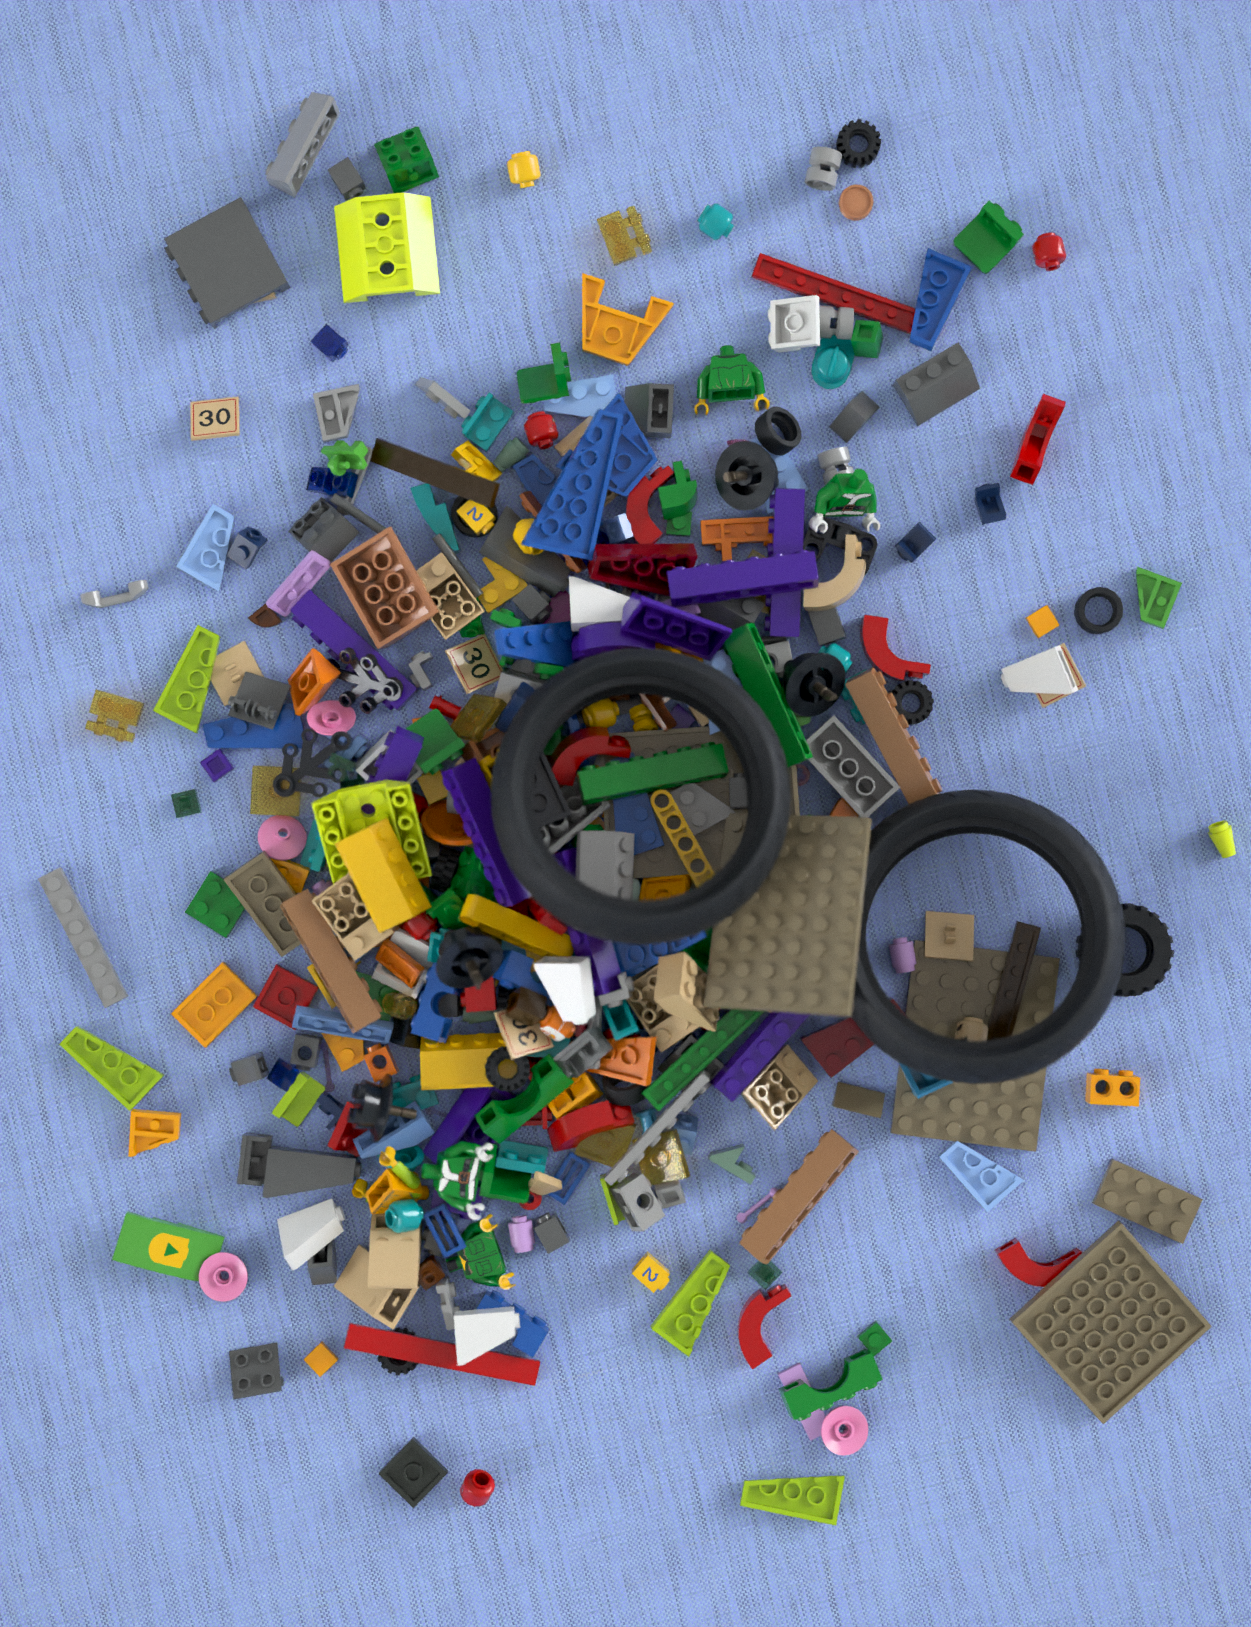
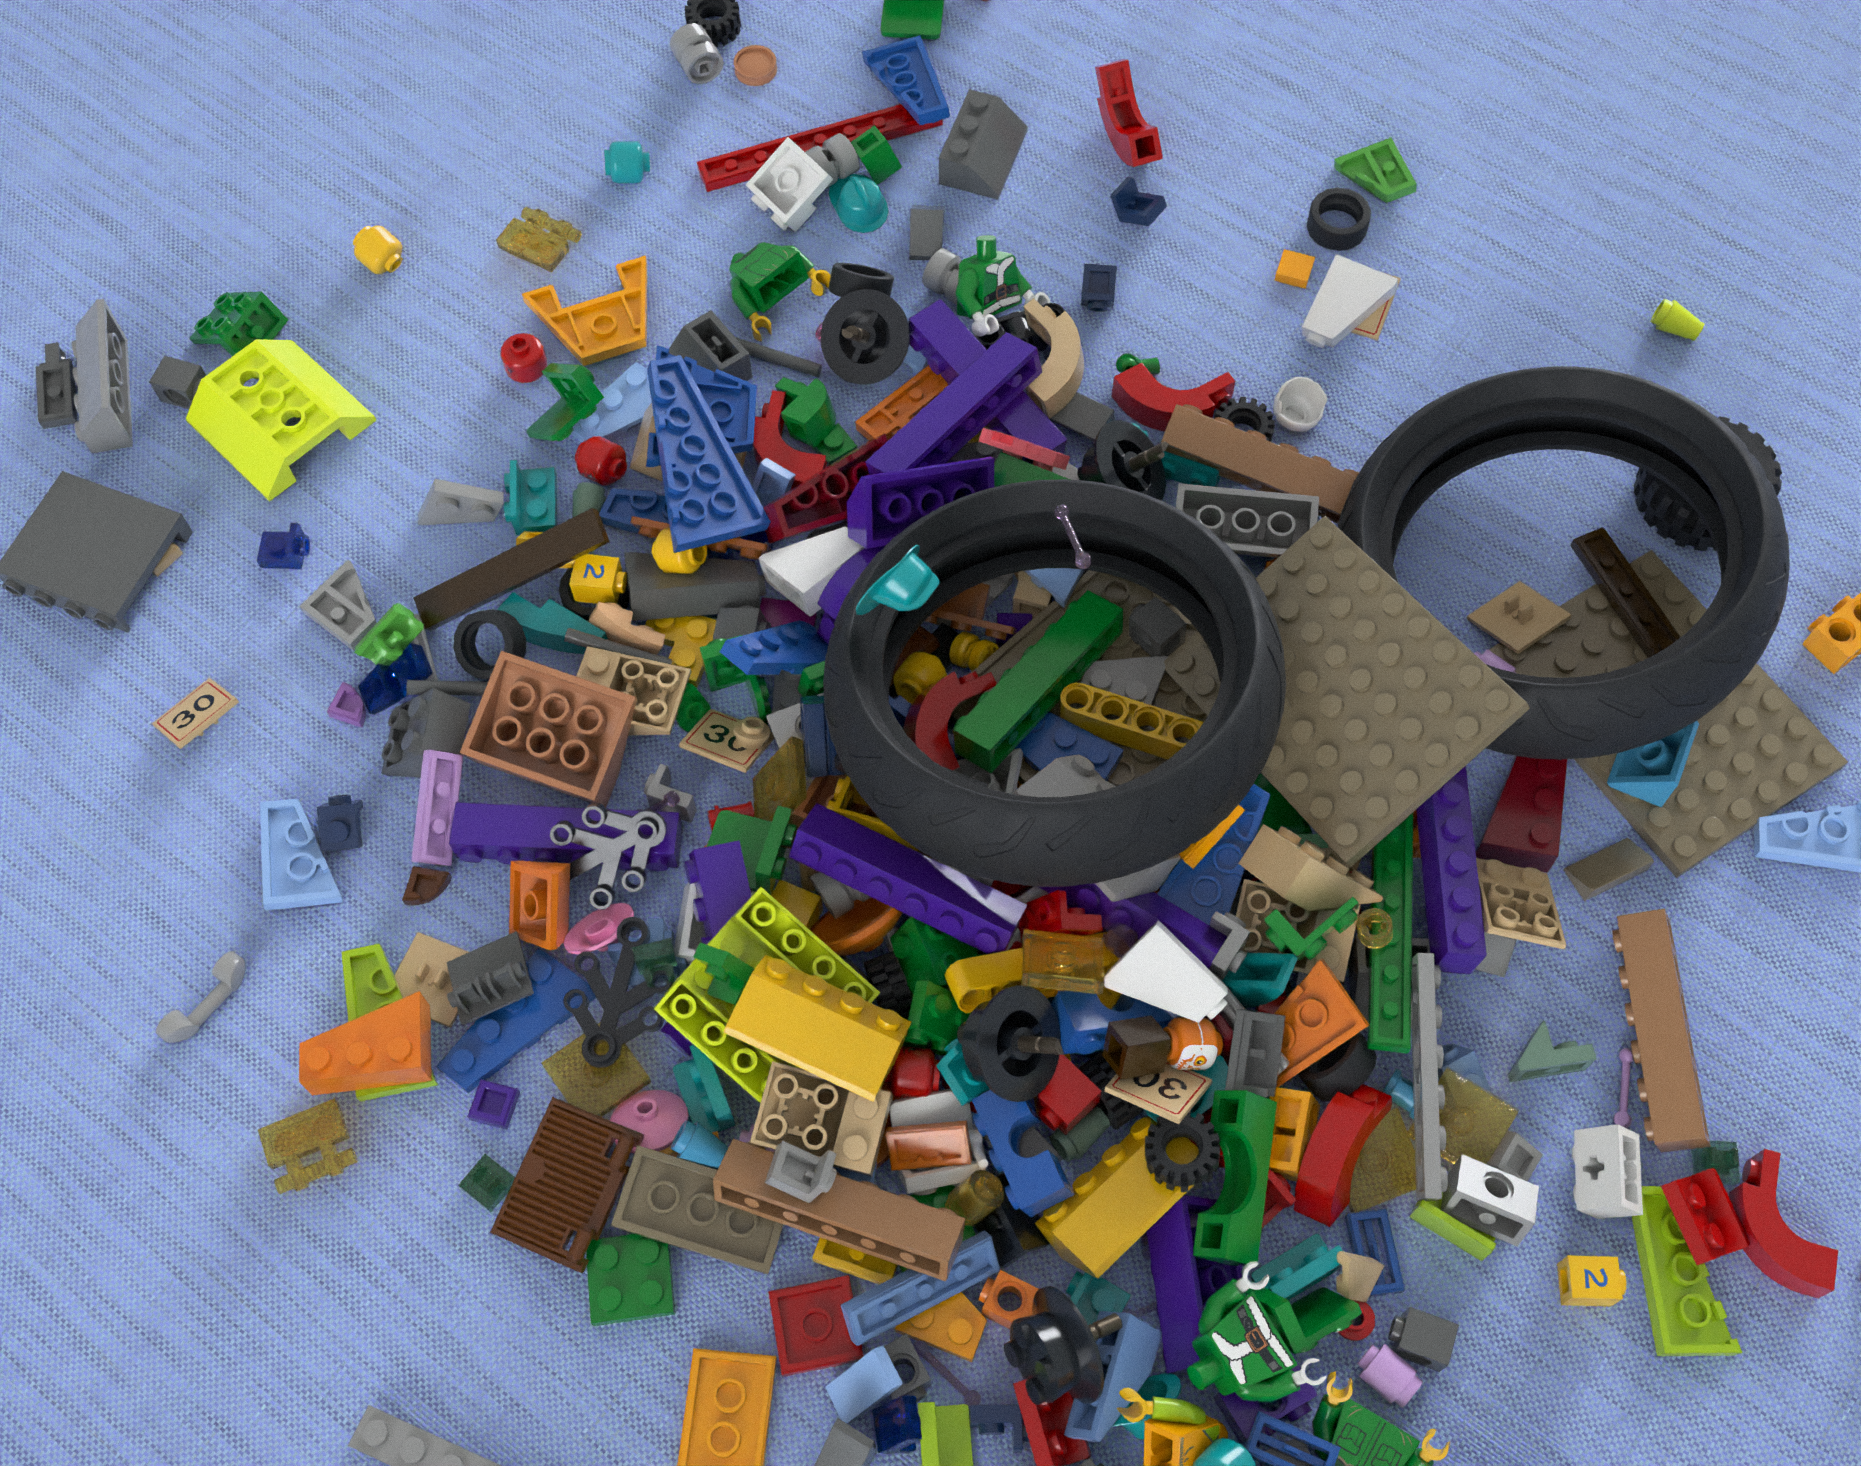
camera: 35 degrees left, 25 degrees down
(174, 698) = (371, 1051): none -> orange wedge
(221, 837) = (566, 1184): none -> reddish brown window
(276, 123) = (55, 389): none -> dark grey hinge
(283, 1045) = (864, 1385): none -> light blue tile
(293, 874) = (698, 1145): none -> dark azure cone
(298, 475) = (348, 706): none -> medium lavender tile
(322, 936) = (801, 1172): none -> light grey bracket
(359, 813) = (728, 972): none -> green bracket
(380, 509) = (465, 640): none -> black tyre
(401, 667) = (670, 799): none -> clear purple hinge
(469, 551) = (618, 628): none -> light nougat slope
(486, 675) = (751, 732): none -> tan plate
(524, 939) = (1062, 962): none -> clear yellow plate
(549, 322) = (523, 357): none -> red head
(565, 947) = (1119, 938): none -> hinge
(593, 702) = (902, 587): none -> teal piece
(644, 1021) = (1286, 937): none -> green bracket
(694, 433) = (781, 358): none -> dark grey bar
(699, 755) = (1082, 558): none -> clear purple hinge
(704, 1042) = (1368, 917): none -> clear yellow bush
(705, 1236) = (1607, 1172): none -> white brick
(729, 1290) = (1705, 1216): none -> red bracket
(763, 630) = (1020, 448): none -> coral wing
(884, 609) = (1128, 361): none -> green arm
(954, 715) = (1299, 404): none -> white hair

